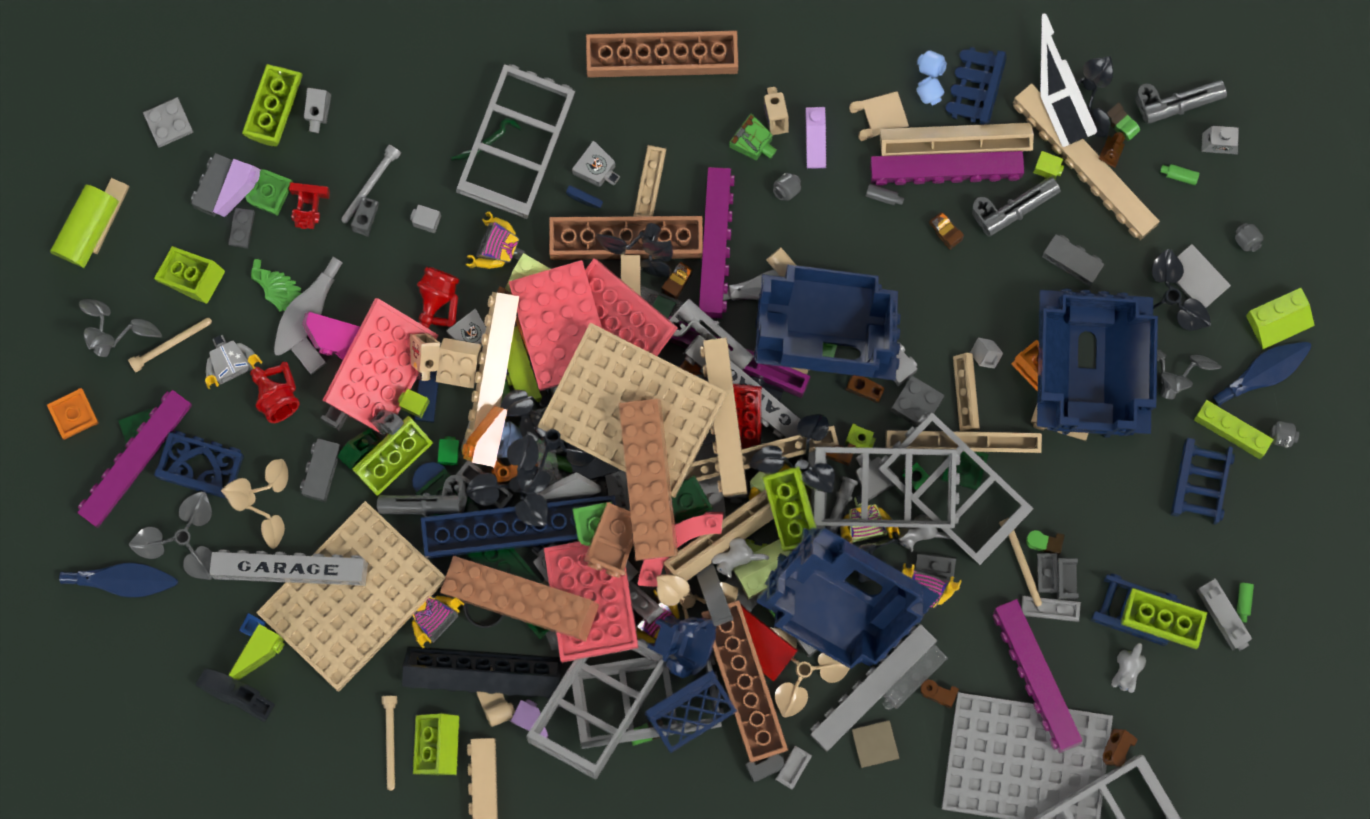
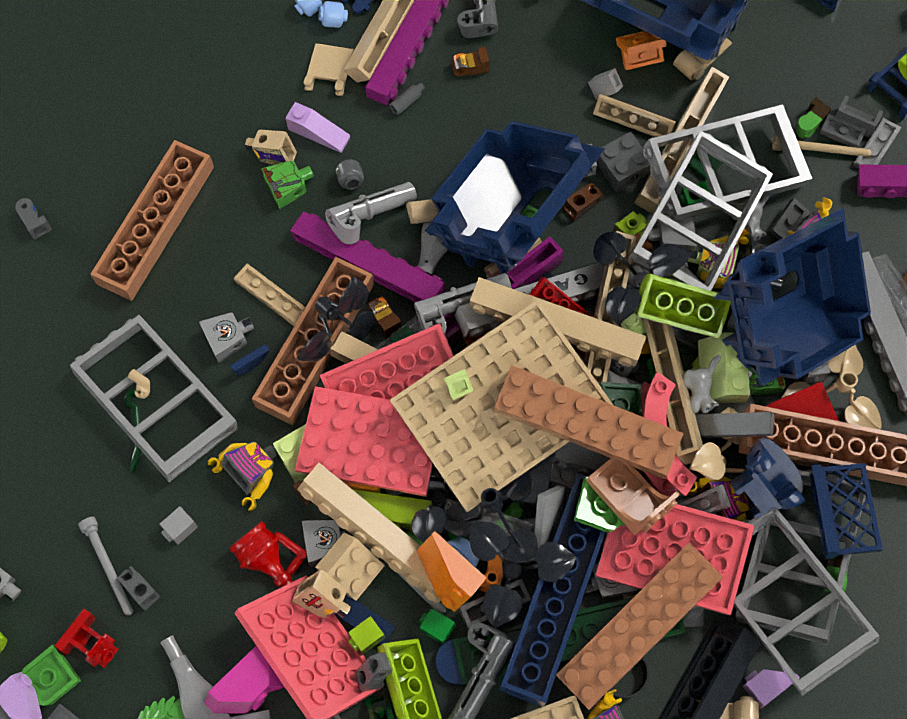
camera: 60 degrees left, 10 degrees down
(517, 128) = (142, 384): none -> tan arm
(626, 367) = (458, 384): none -> yellowish green plate
(758, 216) = (346, 217): none -> light grey piece

